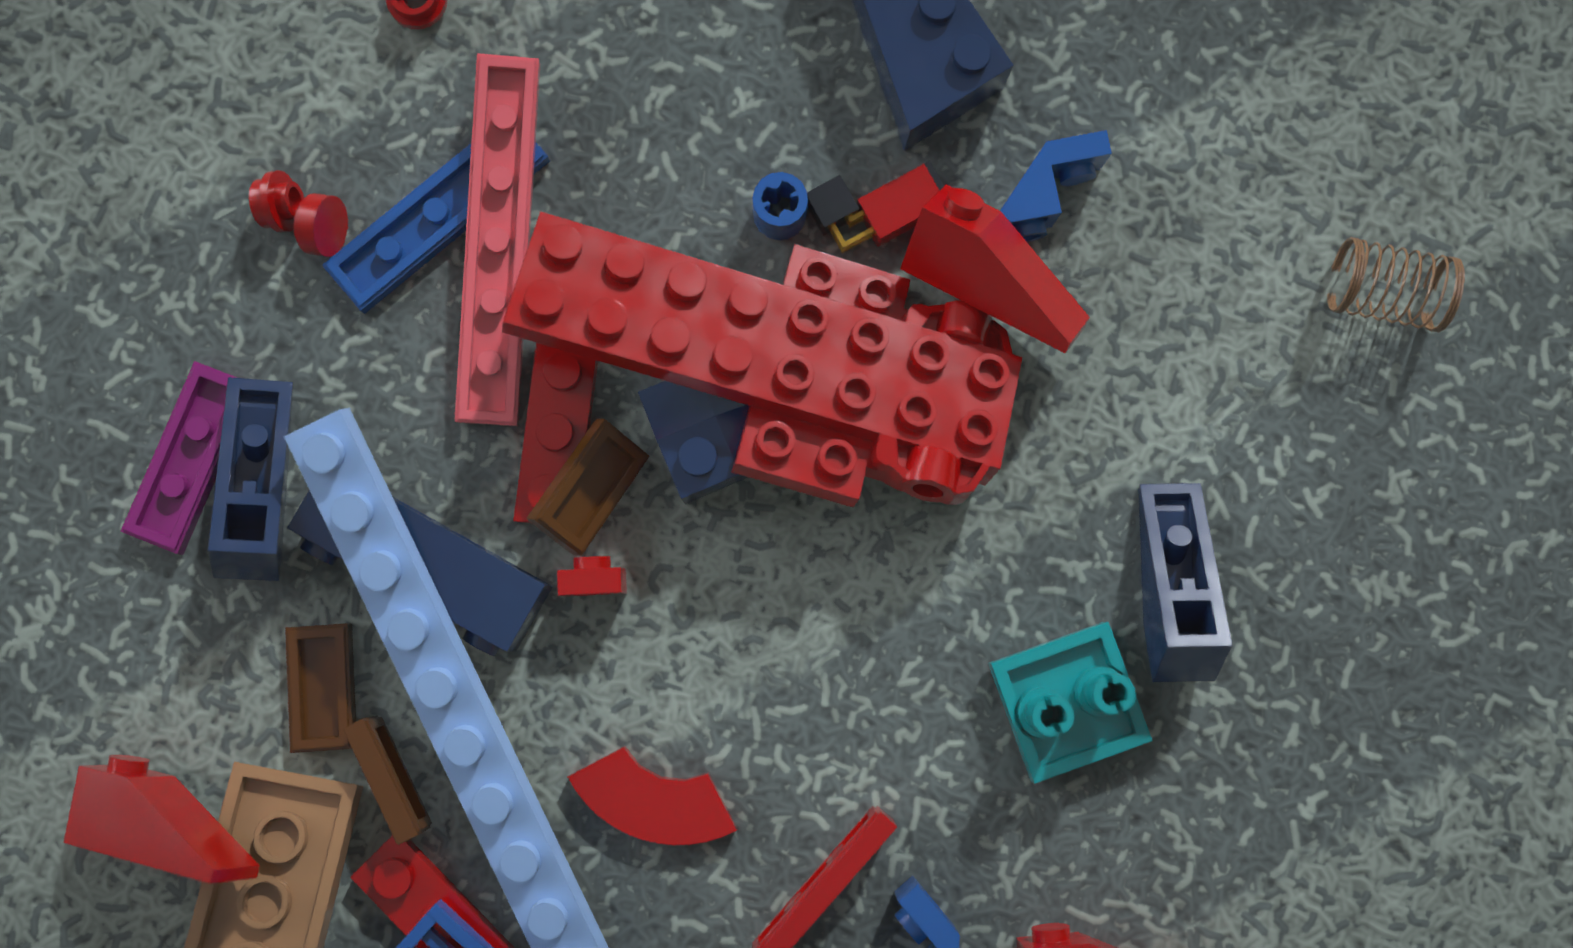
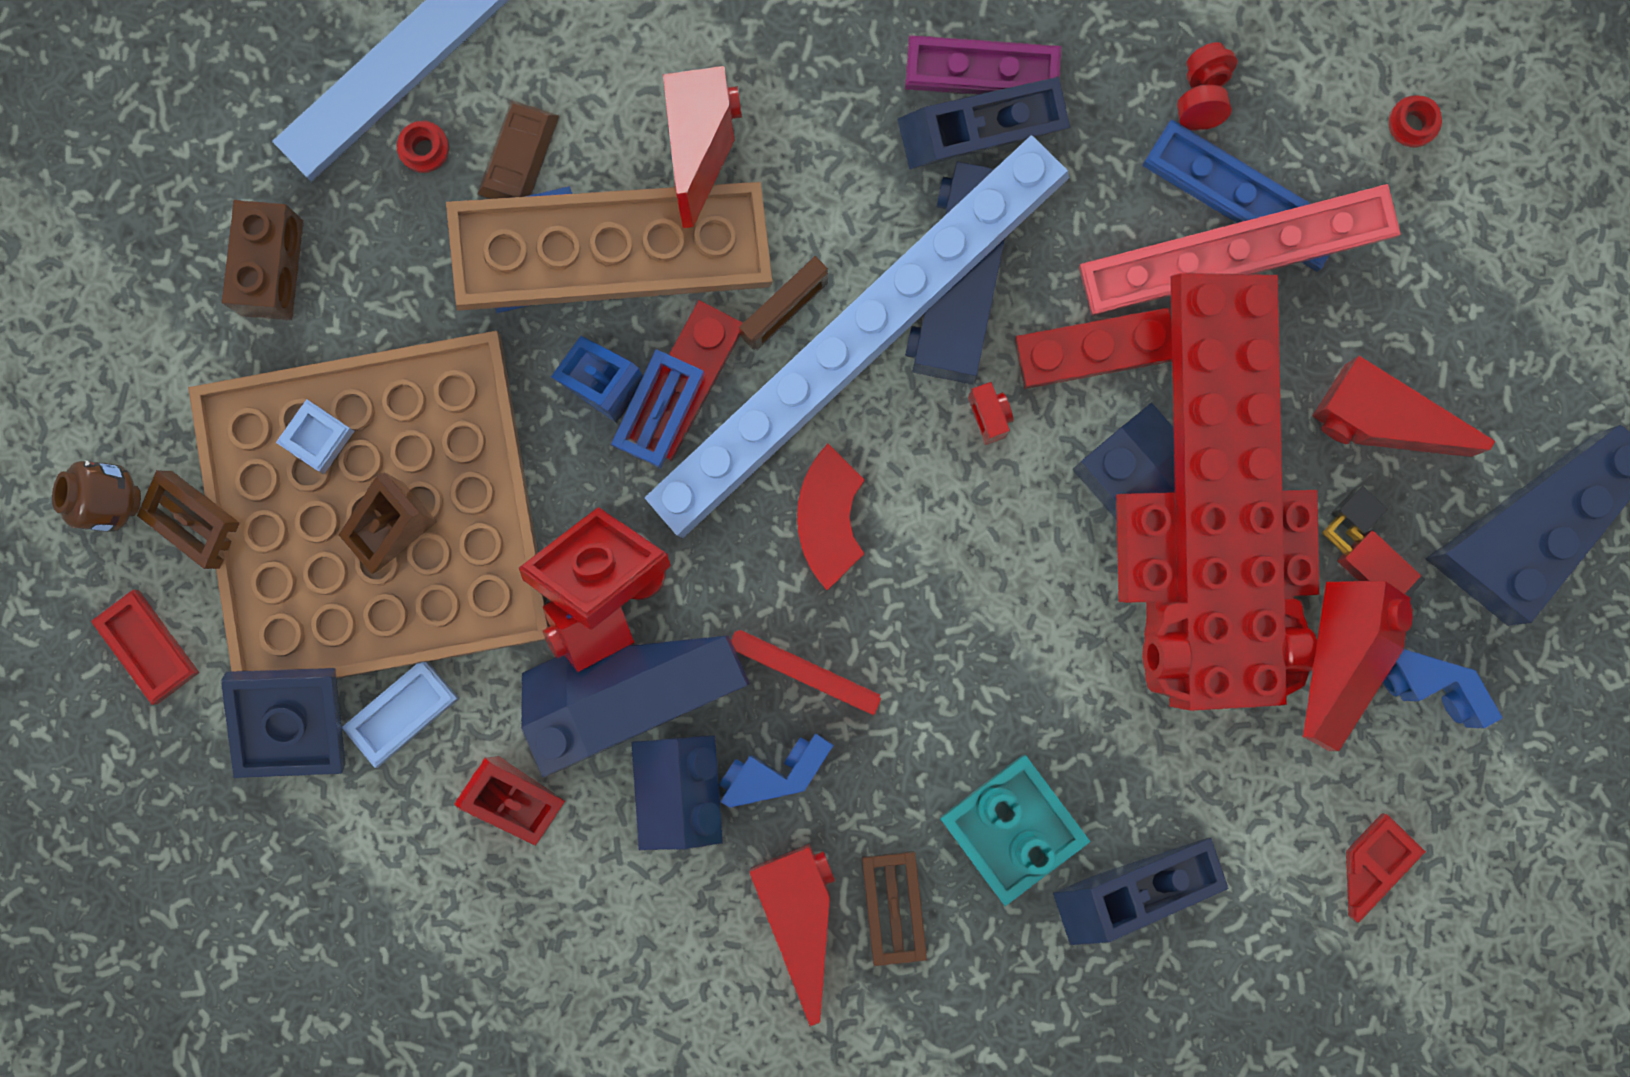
camera: 80 degrees right, 0 degrees up
(320, 686) = (837, 228): reddish brown tile -> none
(588, 487) = (1063, 386): reddish brown tile -> none
(729, 144) = (1383, 412): none -> red slope
(770, 190) = (1355, 457): blue gear -> none
(1064, 853) = (898, 955): none -> reddish brown tile
(1220, 313) = (1377, 864): none -> red tile
(1360, 266) = (1475, 959): medium nougat piece -> none

